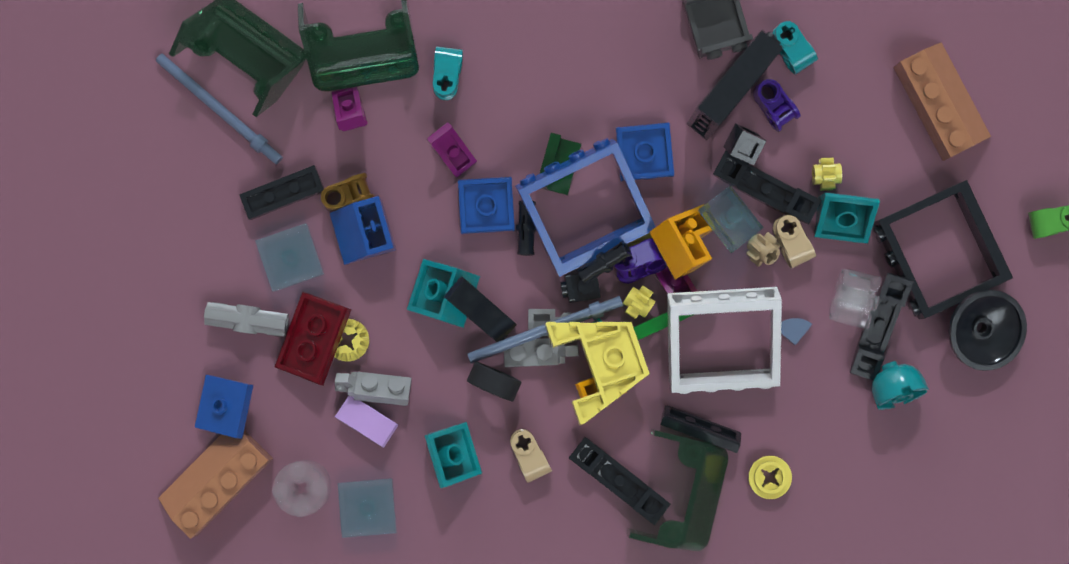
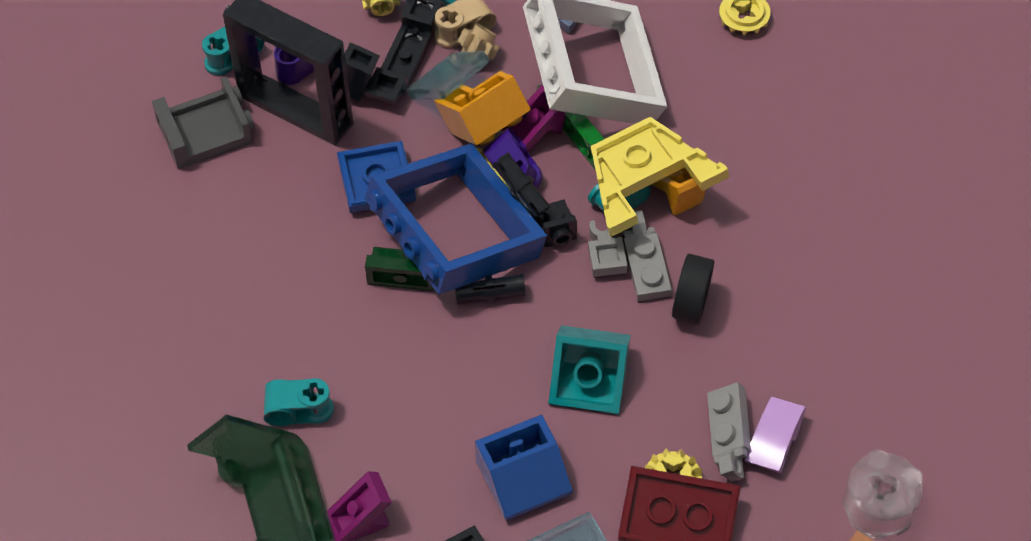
camera: 95 degrees left, 30 degrees down
(348, 191) = (474, 494): pearl gold piece -> none
(367, 507) = (889, 419): clear light blue plate -> none
(451, 149) = (398, 383): magenta slope -> none
(453, 454) = (798, 334): teal slope -> none
(480, 310) = (604, 313): black tile -> none
(486, 205) = (467, 336): blue plate -> none
(531, 459) = (776, 249): tan piece -> none
(594, 310) = (584, 198): sand blue bar -> none
(619, 480) = (787, 151): black slope -> none
(639, 302) = (563, 156): light yellow gear -> none
(697, 526) = (788, 74): clear green windscreen -> none
(701, 428) = (703, 80): black tile -> none

